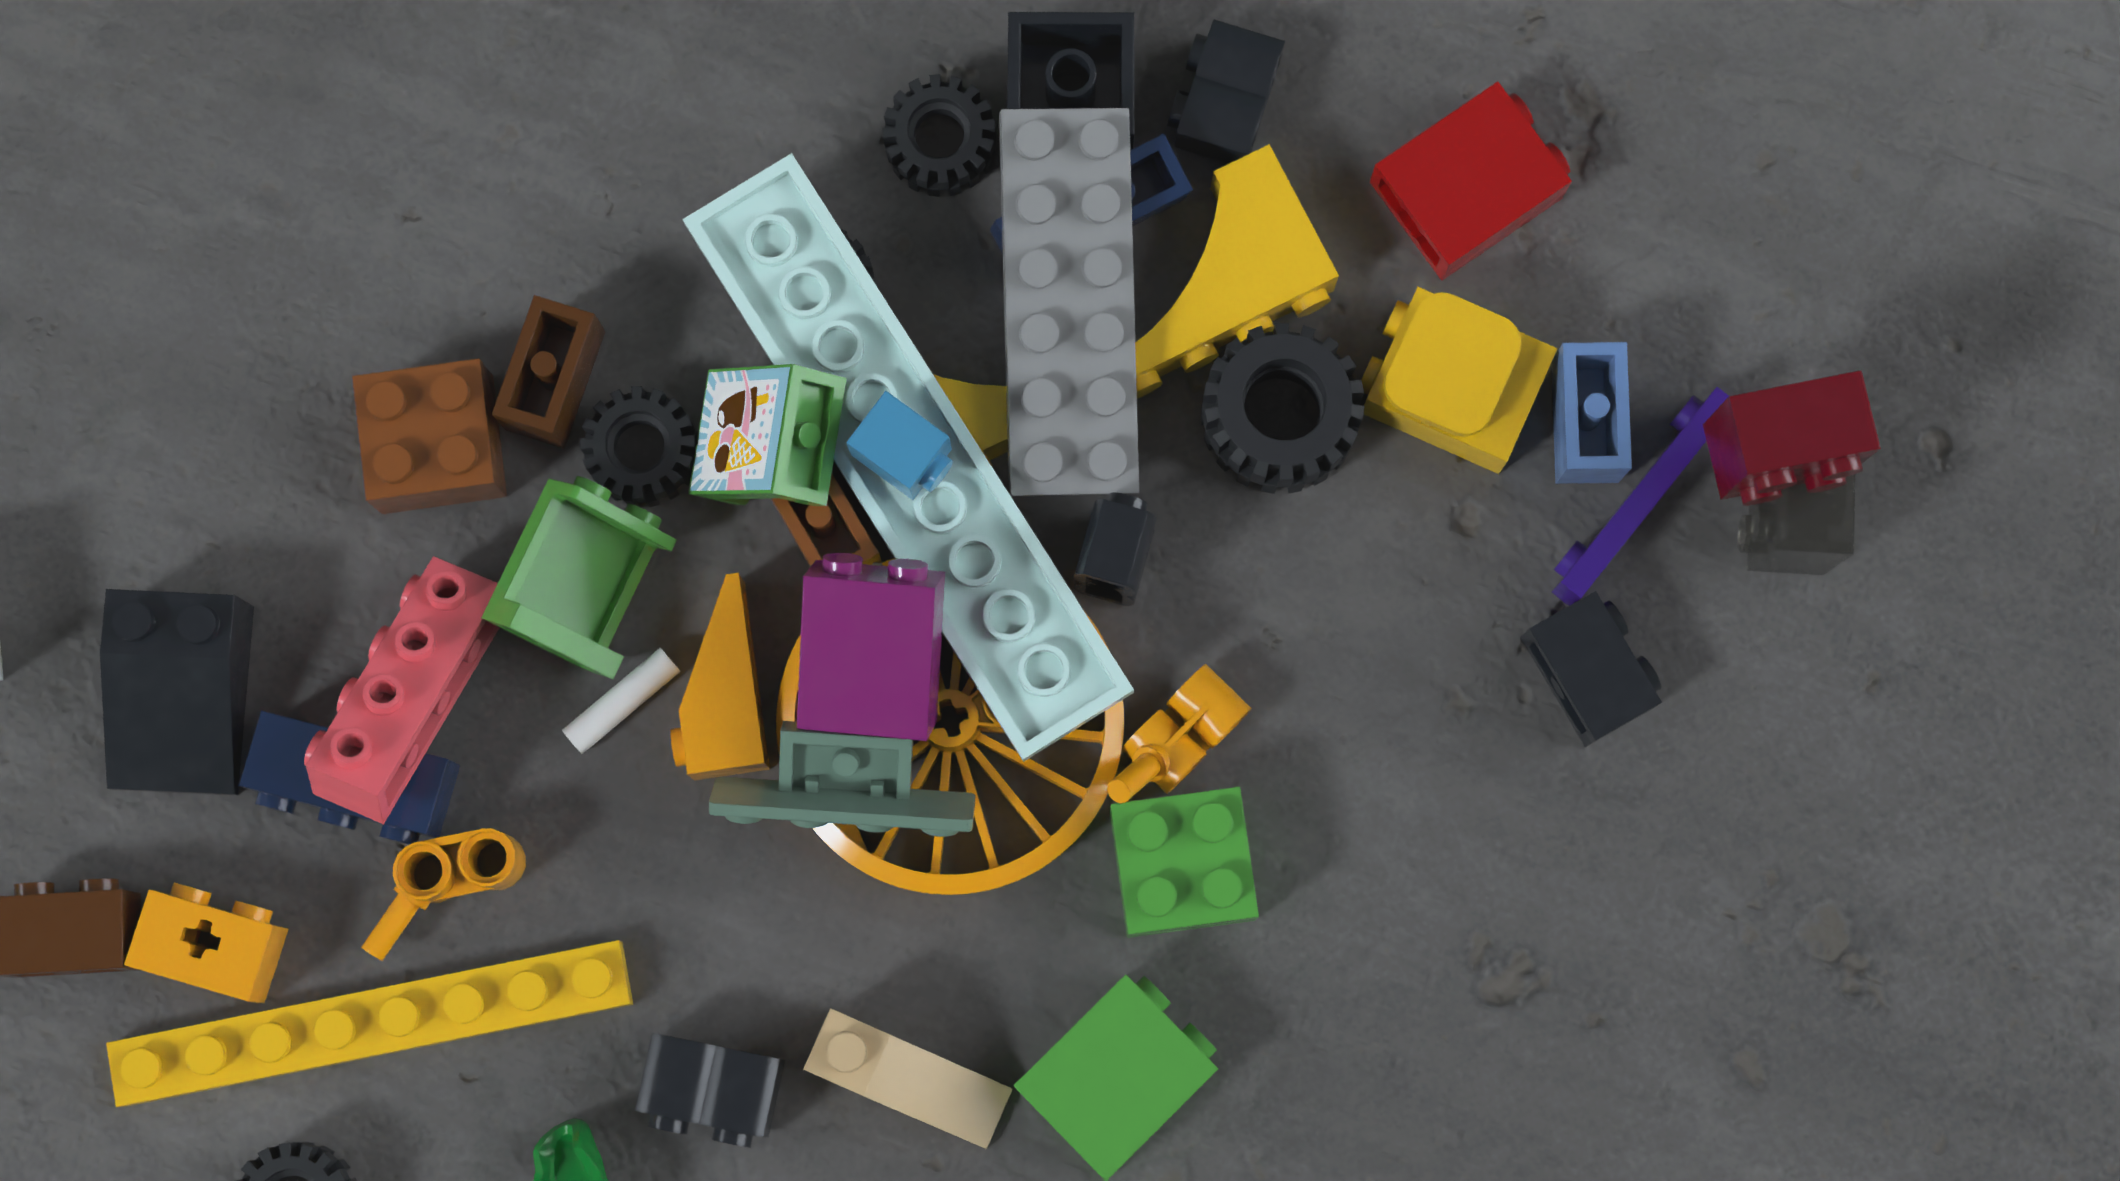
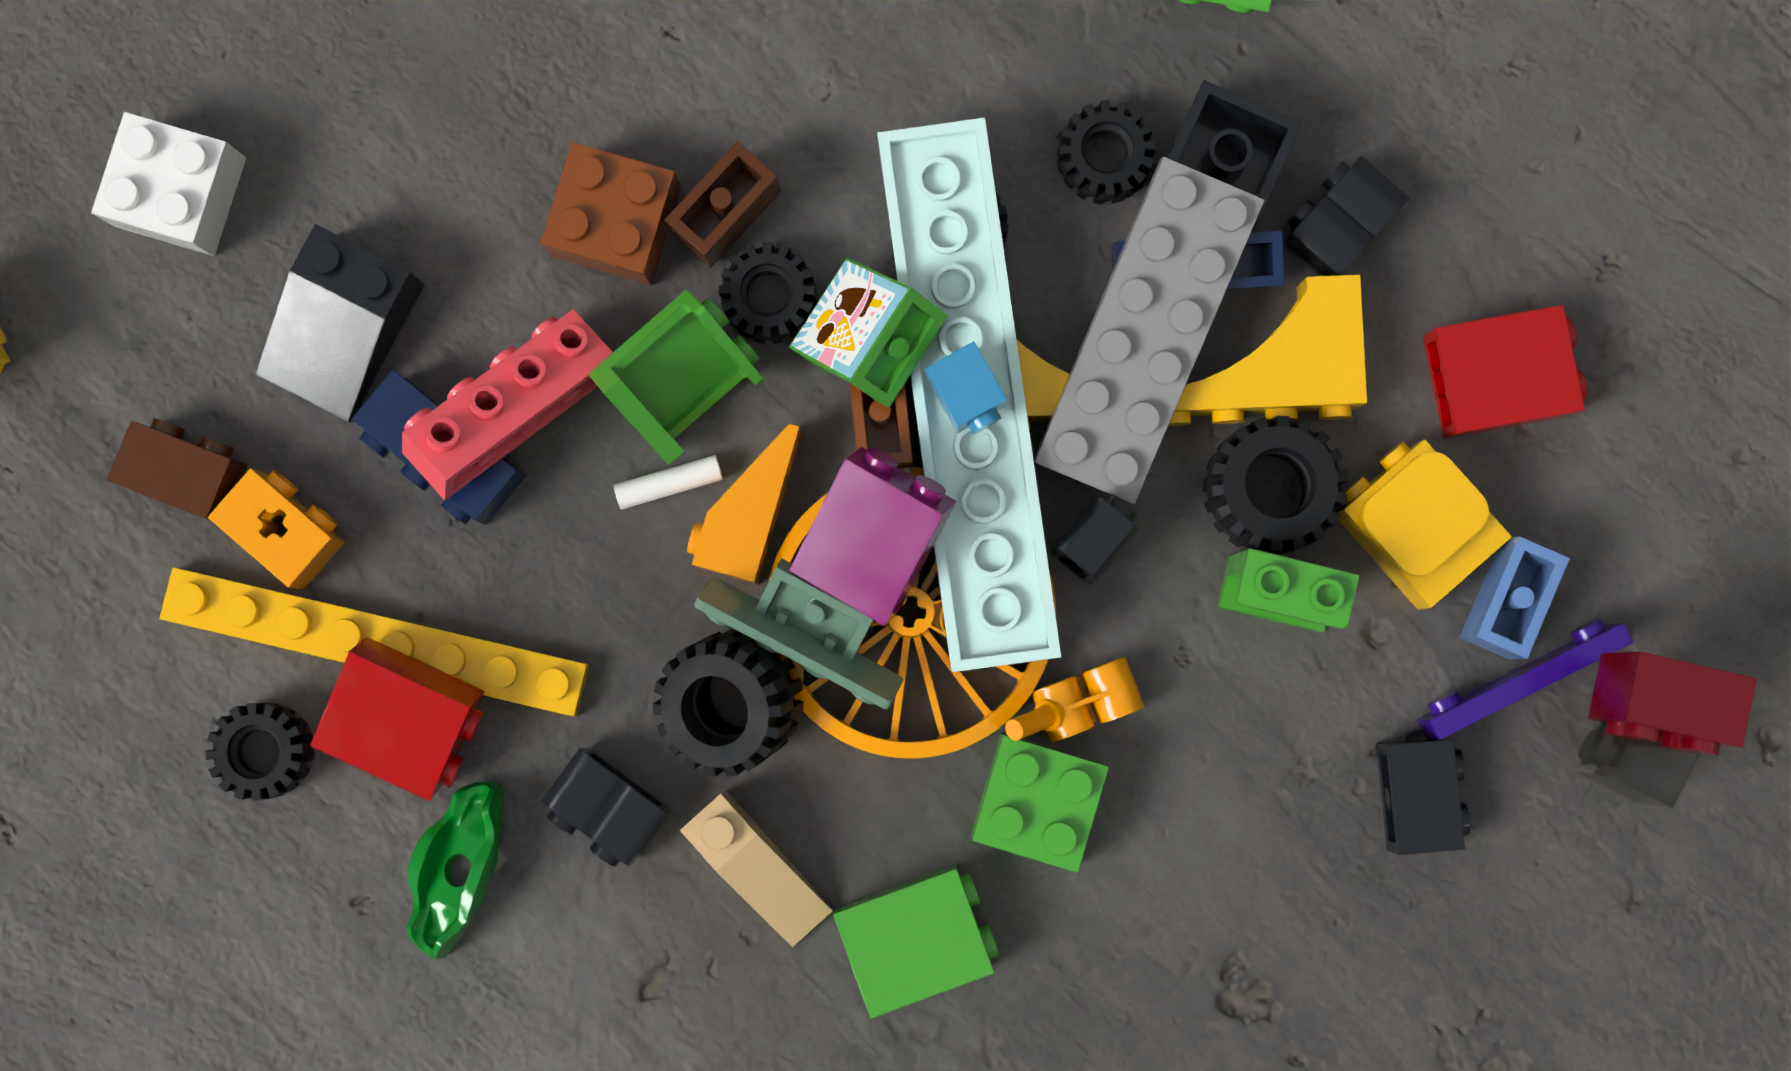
camera: 30 degrees right, 5 degrees up
(437, 1092) = (399, 719): none -> red brick
(459, 877) = (488, 561): light orange beam -> none
(763, 944) = (697, 726): none -> black tyre
(1344, 511) = (1287, 590): none -> bright green panel

